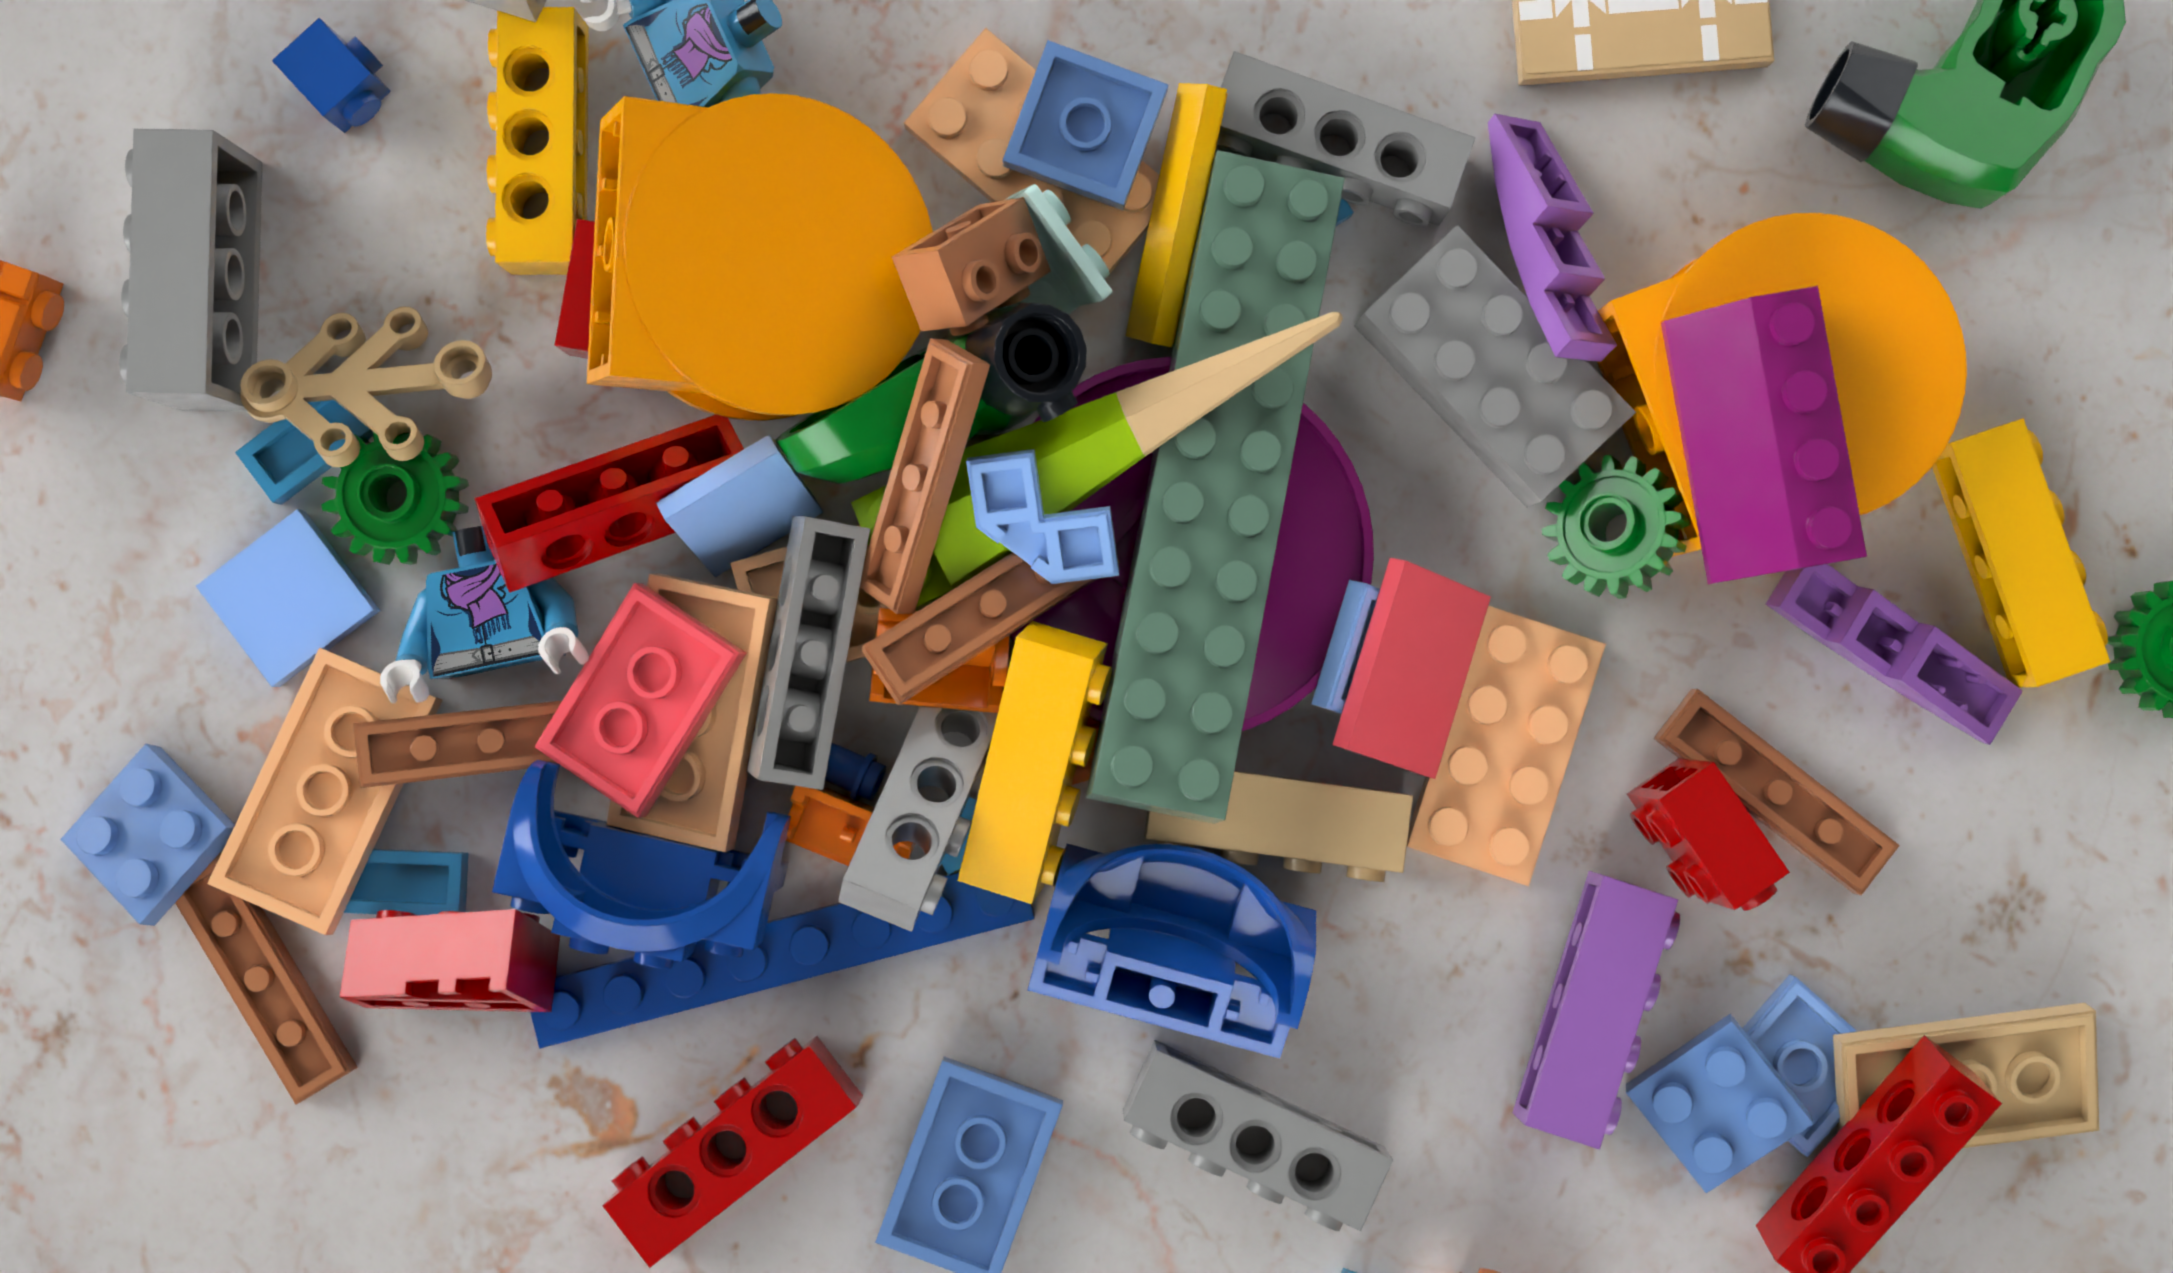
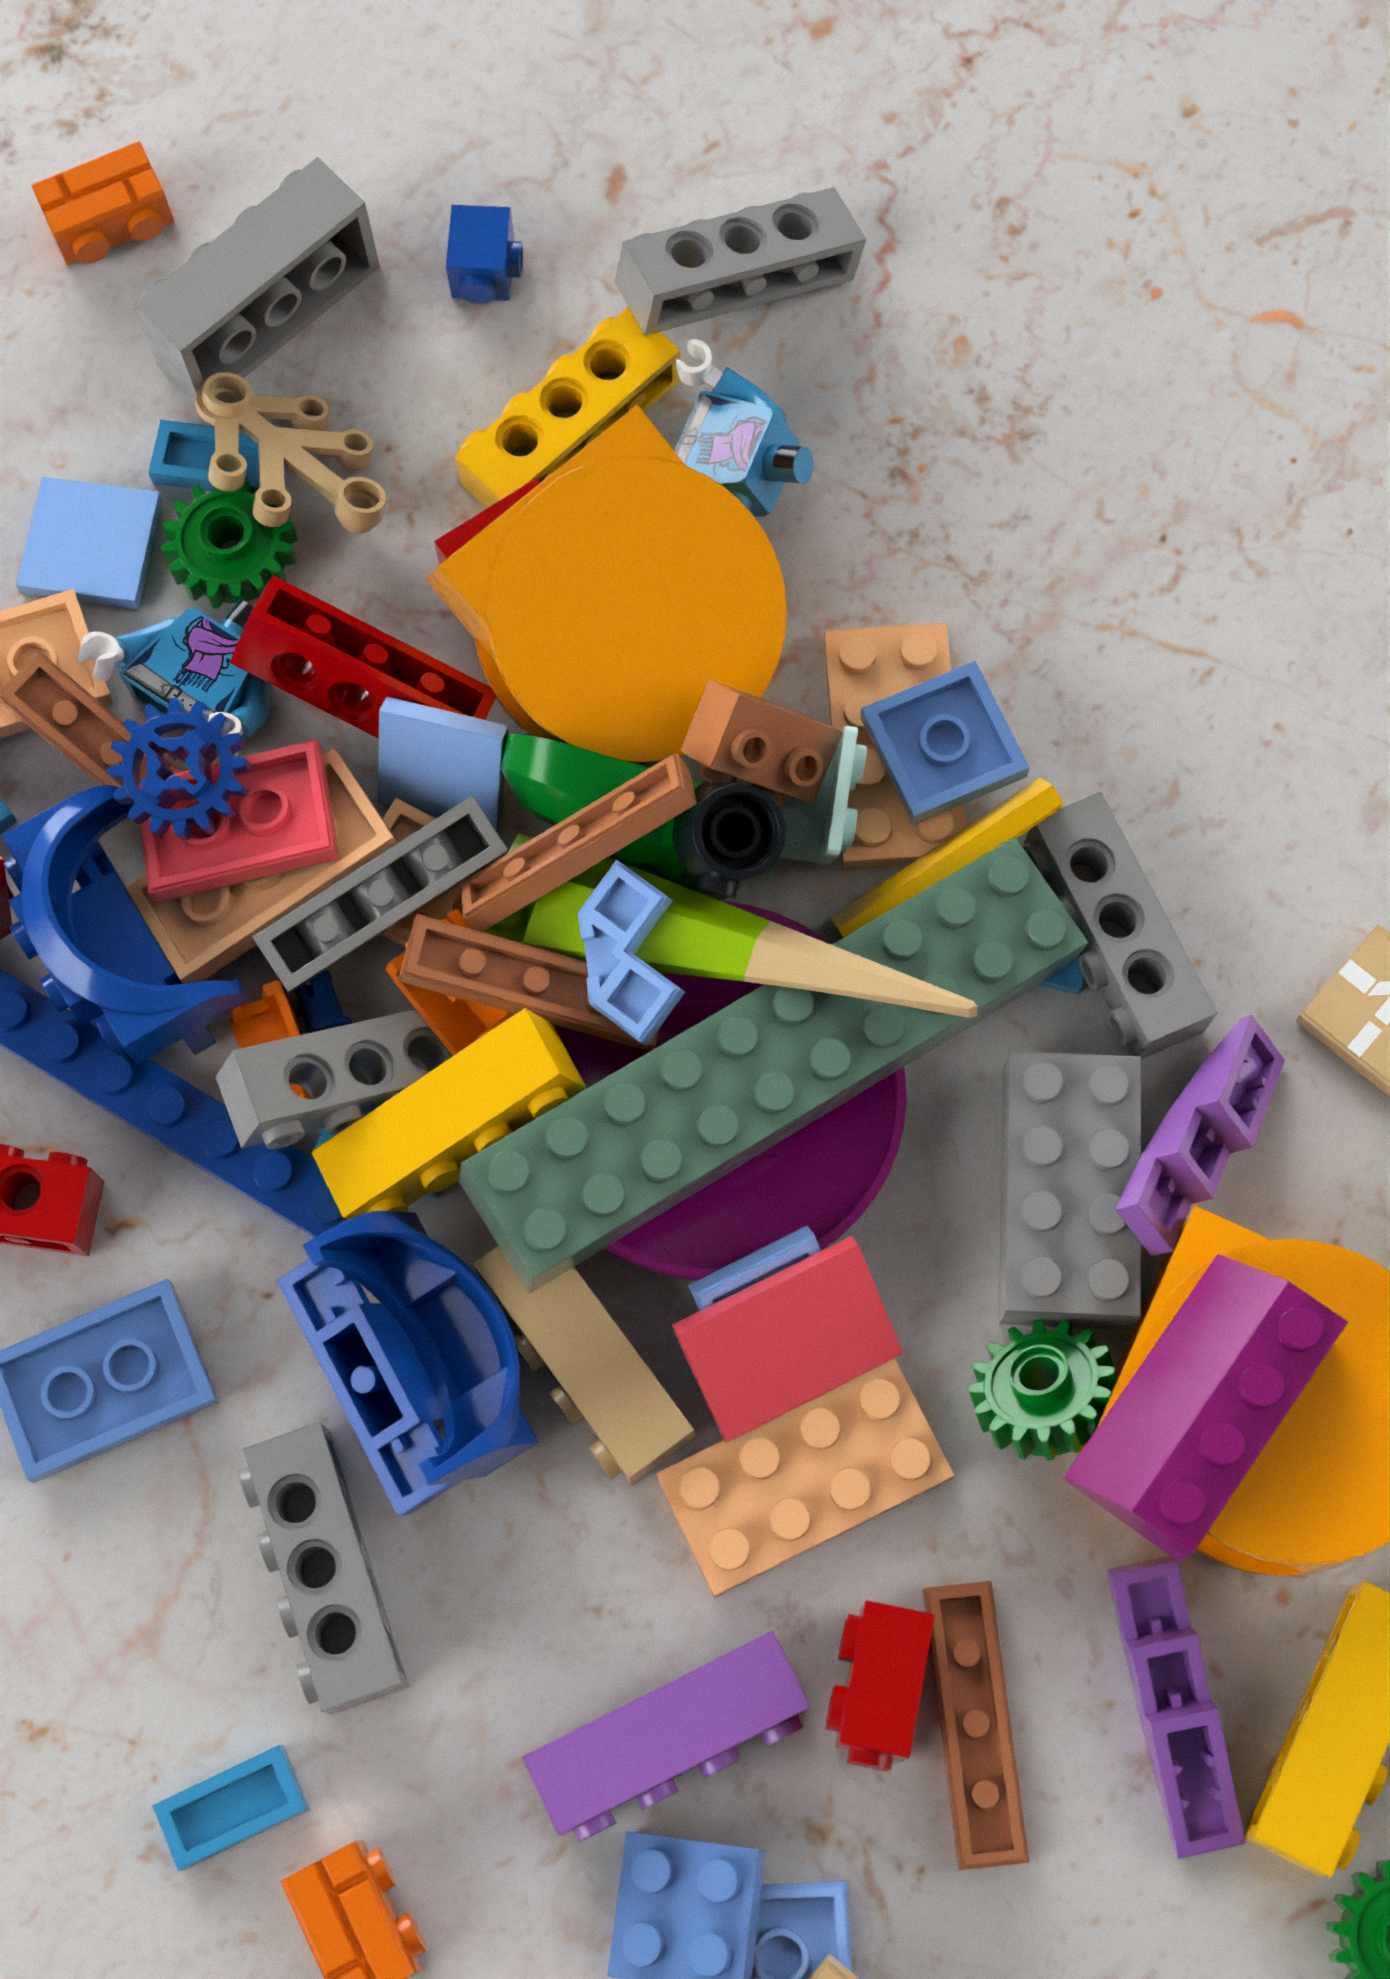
camera: 50 degrees right, 15 degrees down
(566, 739) = (162, 786): none -> blue gear

